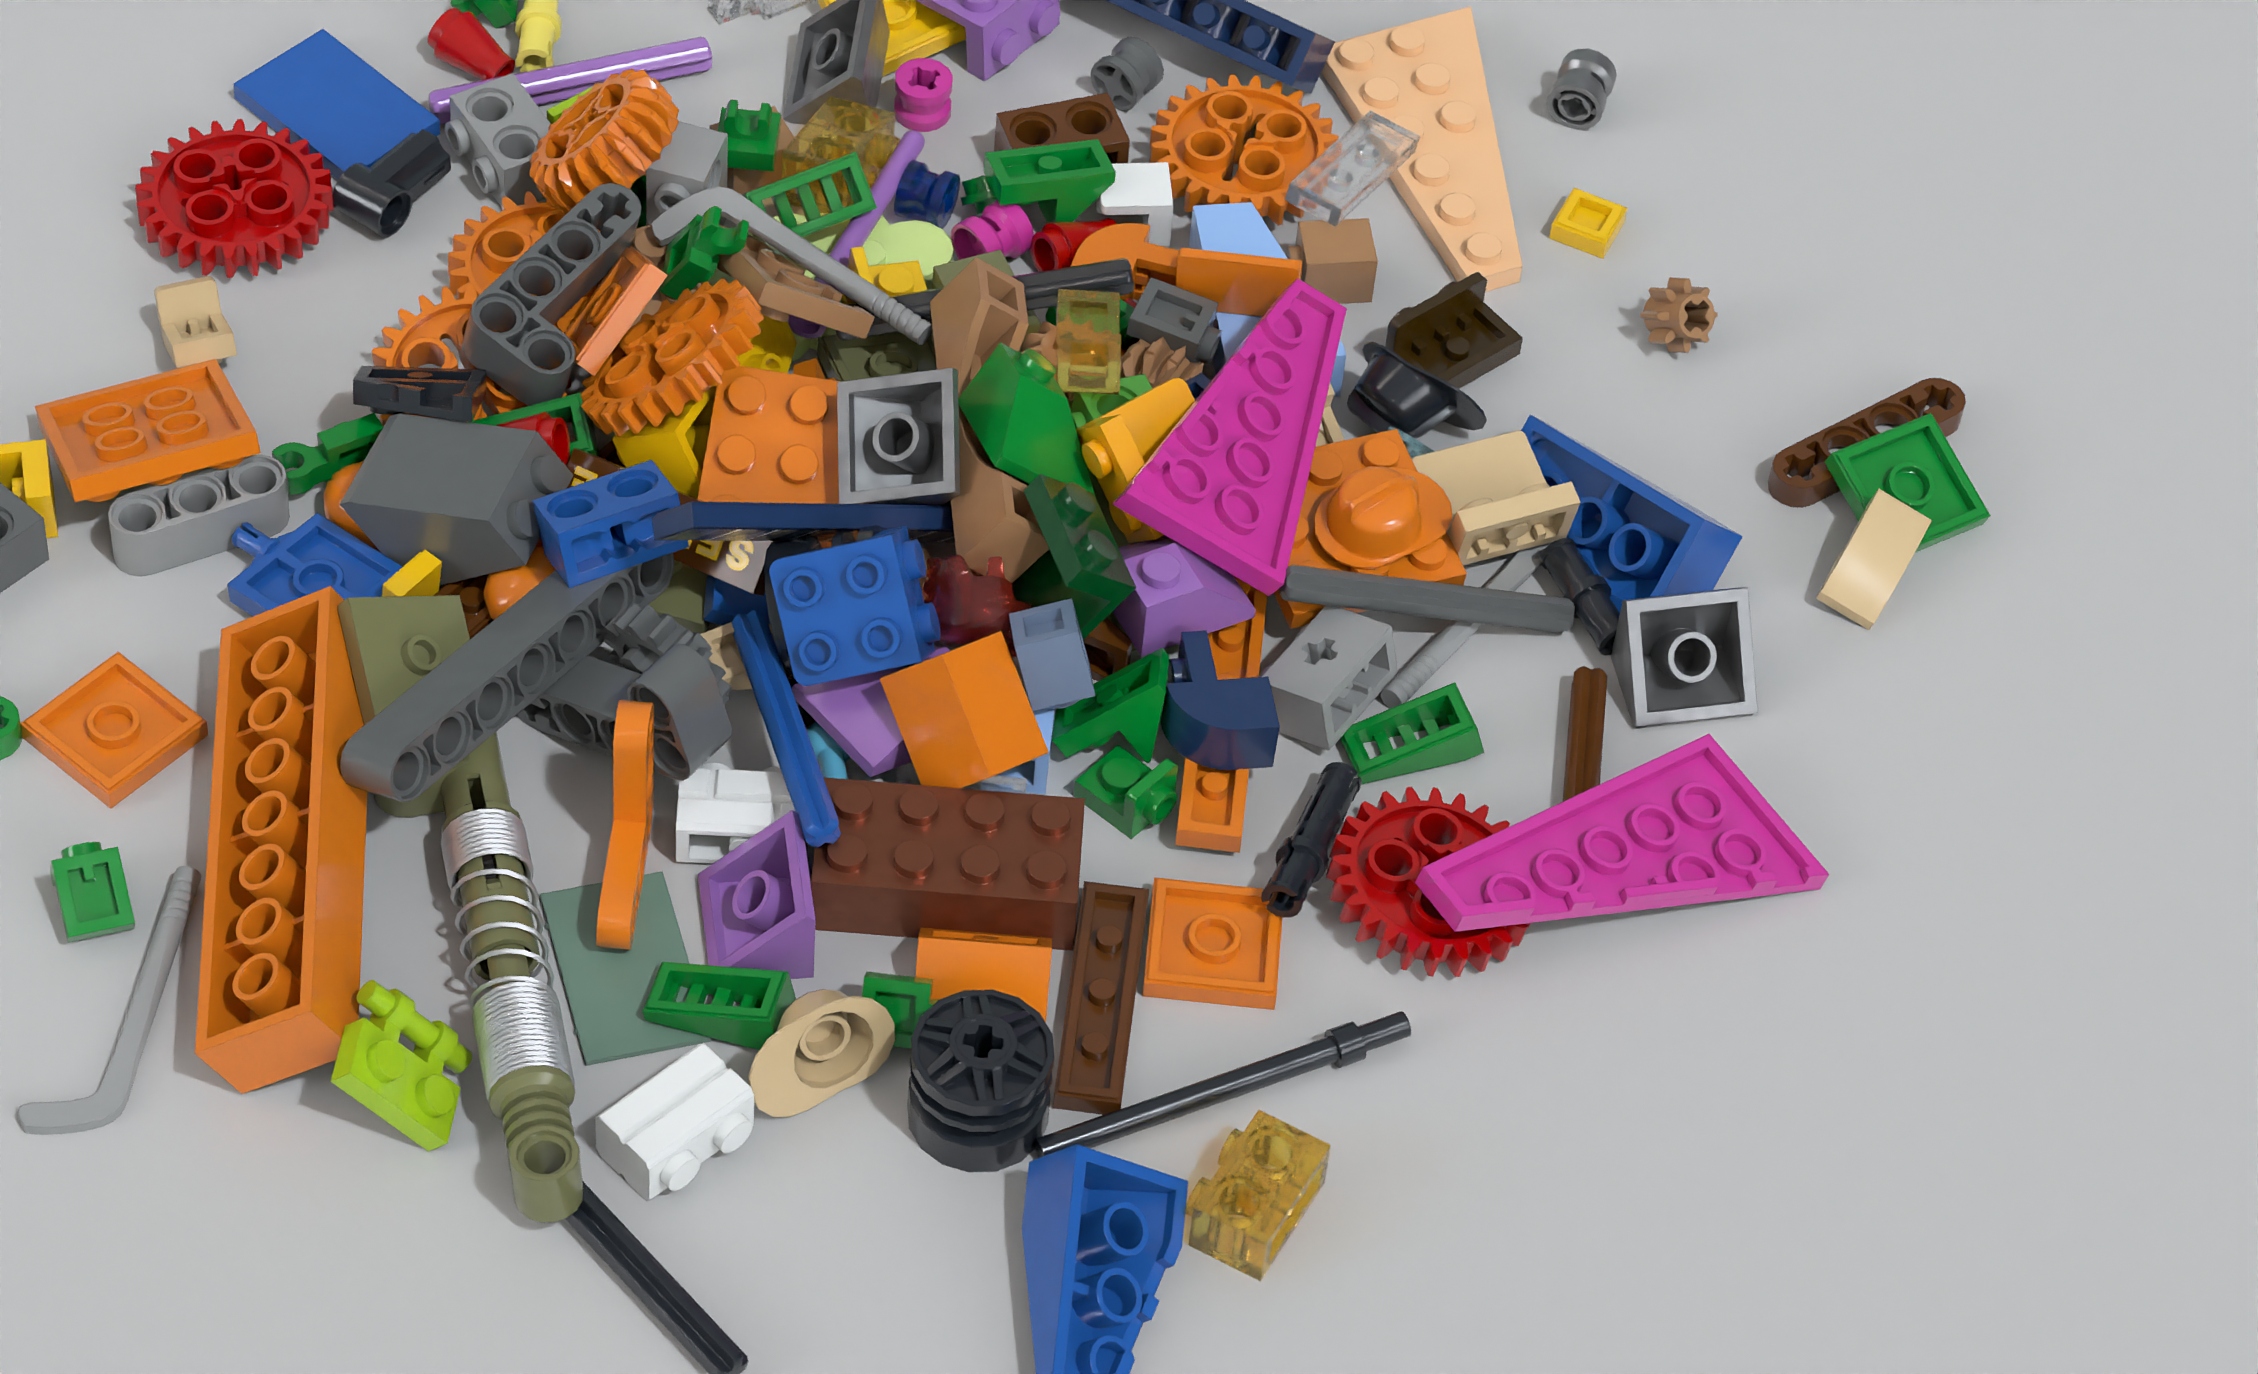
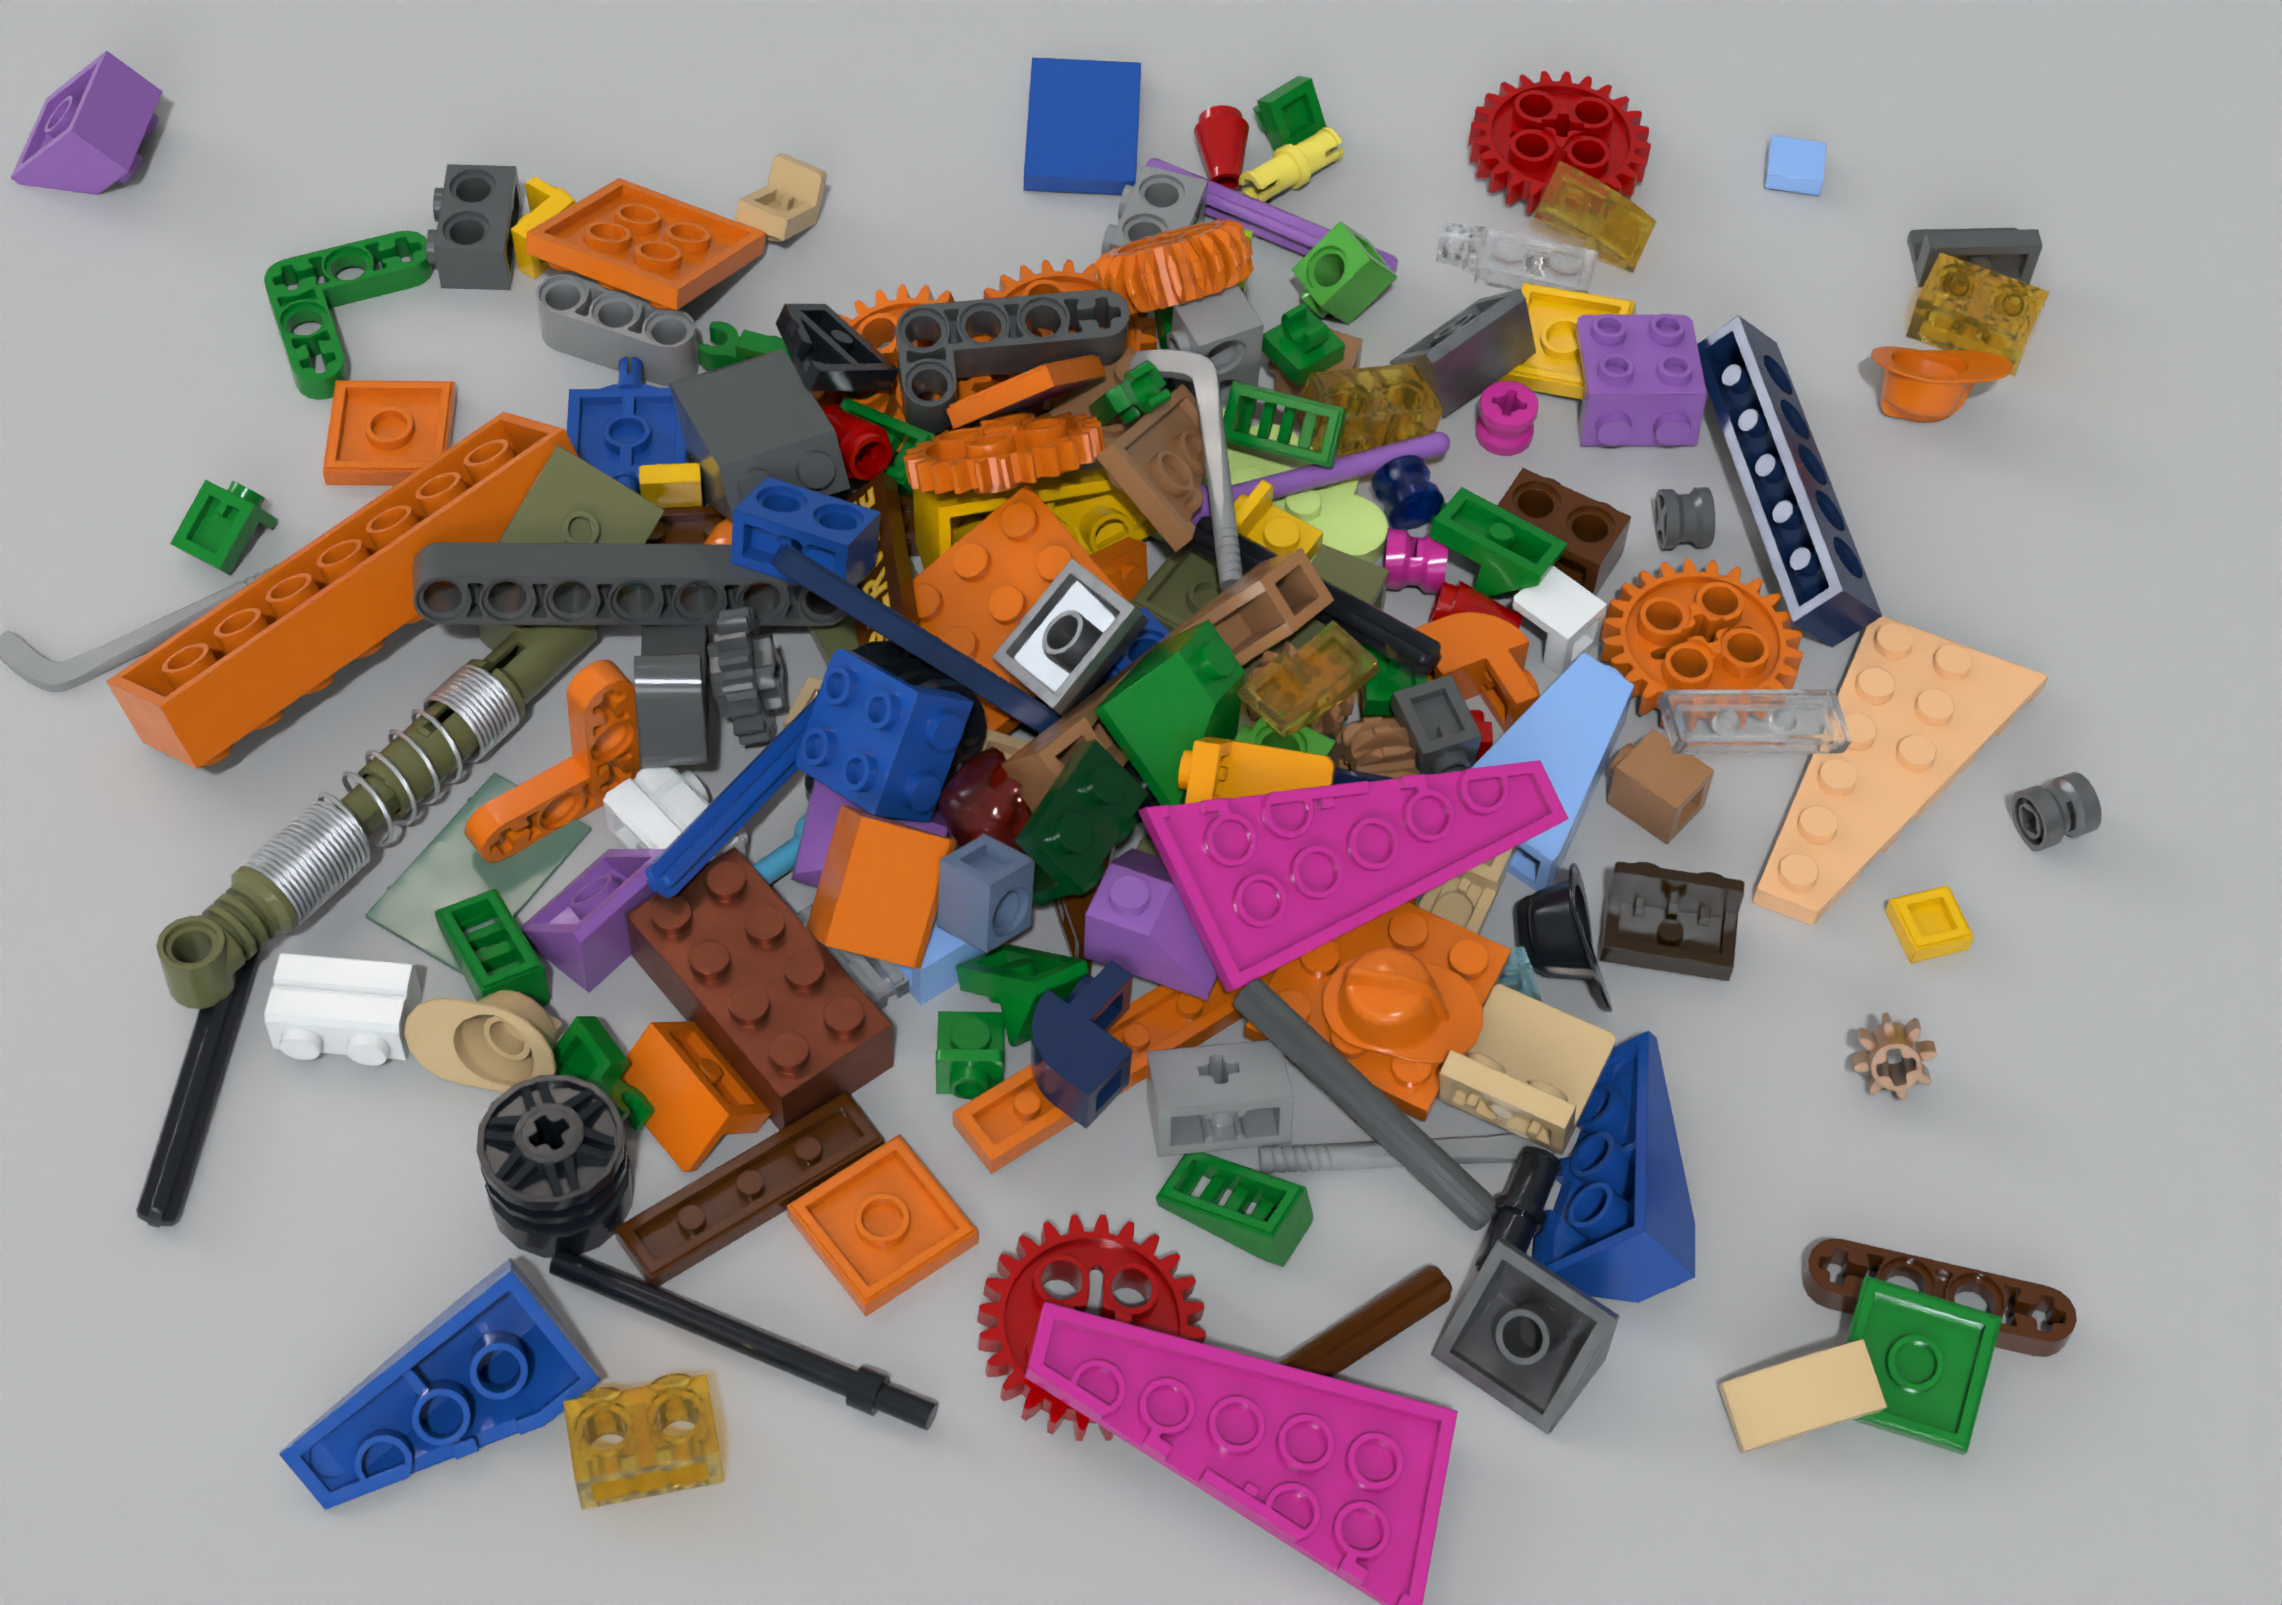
camera: 50 degrees right, 5 degrees up
(234, 198) = (926, 135): red gear -> none
(384, 193) = (1026, 203): black piece -> none
(391, 1079) = (200, 812): lime plate -> none
(685, 48) = (1363, 277): none -> bright green brick
(1234, 280) = (1528, 729): orange panel -> none
(1304, 855) = (1025, 1213): black pin -> none

